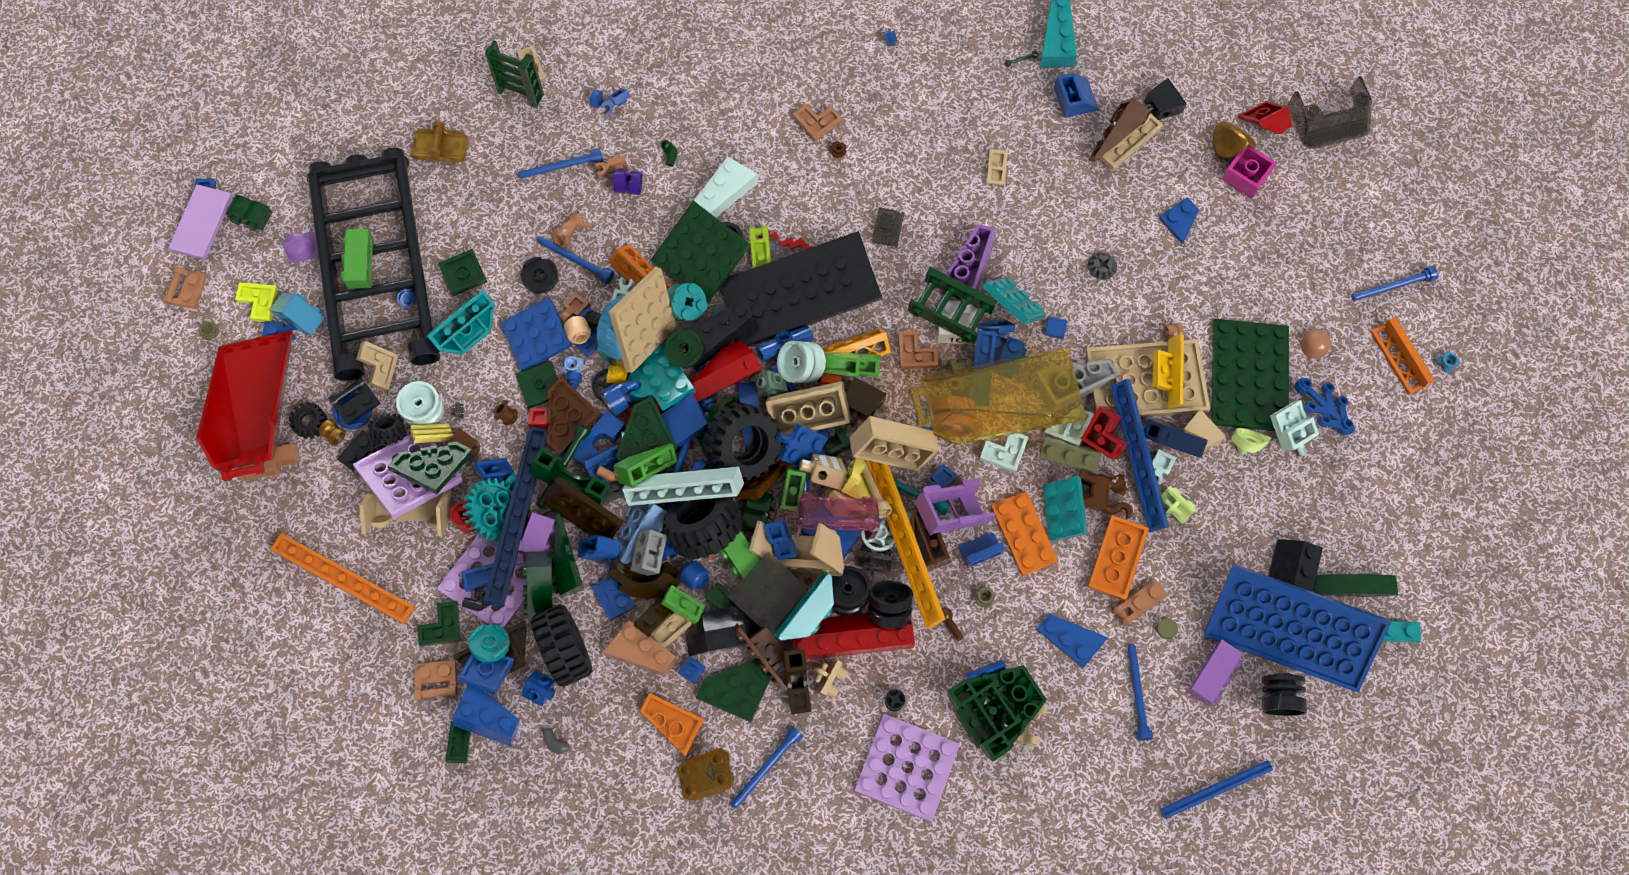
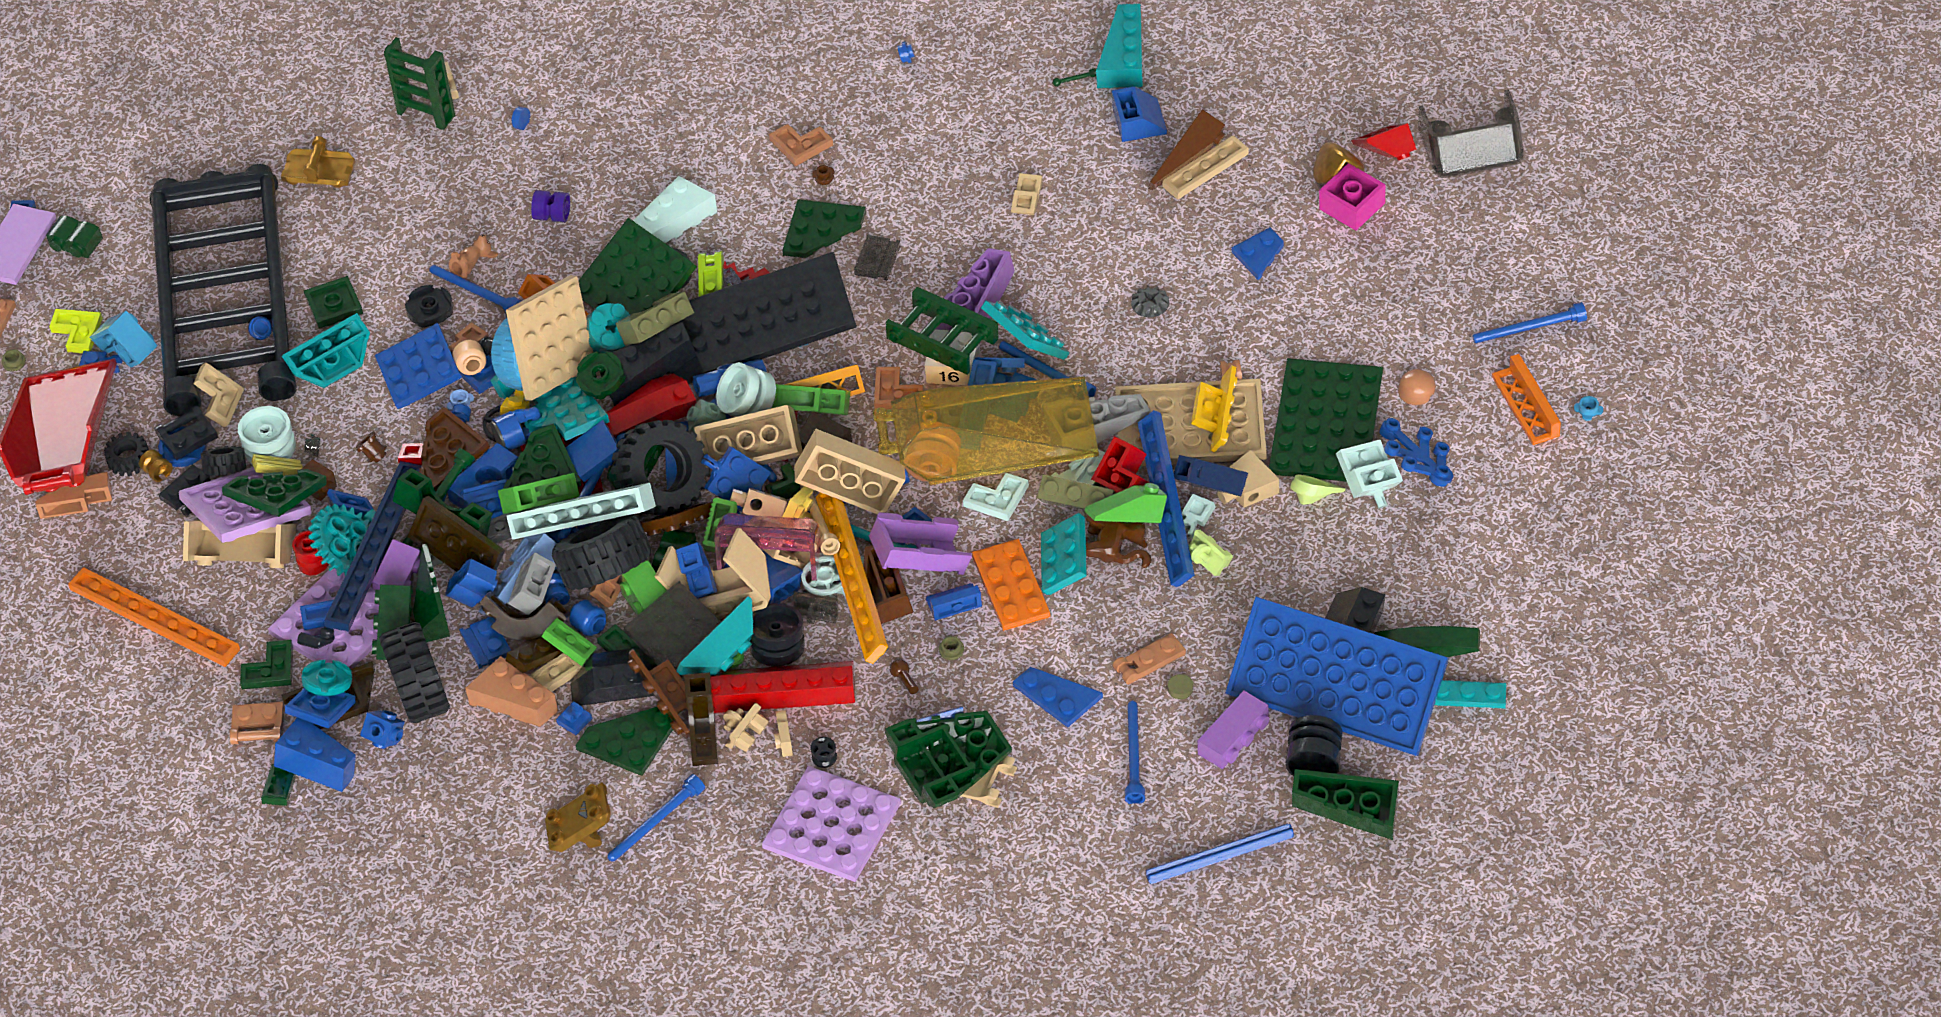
camera: 10 degrees right, 20 degrees down
(300, 247) = (134, 274): medium lavender piece -> none
(357, 258) = (205, 278): bright green brick -> none
(536, 383) = (411, 418): dark green plate -> none
(555, 745) = (397, 791): dark grey arm -> none
(594, 156) = (512, 180): blue piece -> none
(606, 474) = (491, 506): nougat arm -> none
(611, 165) = (521, 192): nougat plate -> none
(617, 98) = (549, 118): blue plate -> none
(670, 151) = (609, 176): dark green arm -> none
(673, 722) = (544, 769): orange wing -> none
(713, 304) = (655, 319): none -> olive arch
(839, 197) = (820, 225): none -> dark green plate
(861, 688) = (782, 738): none -> tan plate
(890, 604) = (827, 644): black wheel -> none
(1028, 329) = (1040, 366): none -> blue piece
(1056, 328) = (1080, 367): blue tile -> none
(1116, 468) = (1131, 505): none -> slope
(1118, 558) = (1126, 609): orange plate -> none
(1164, 101) = (1252, 122): black torso -> none
(1317, 741) = (1348, 799): none -> dark green wedge

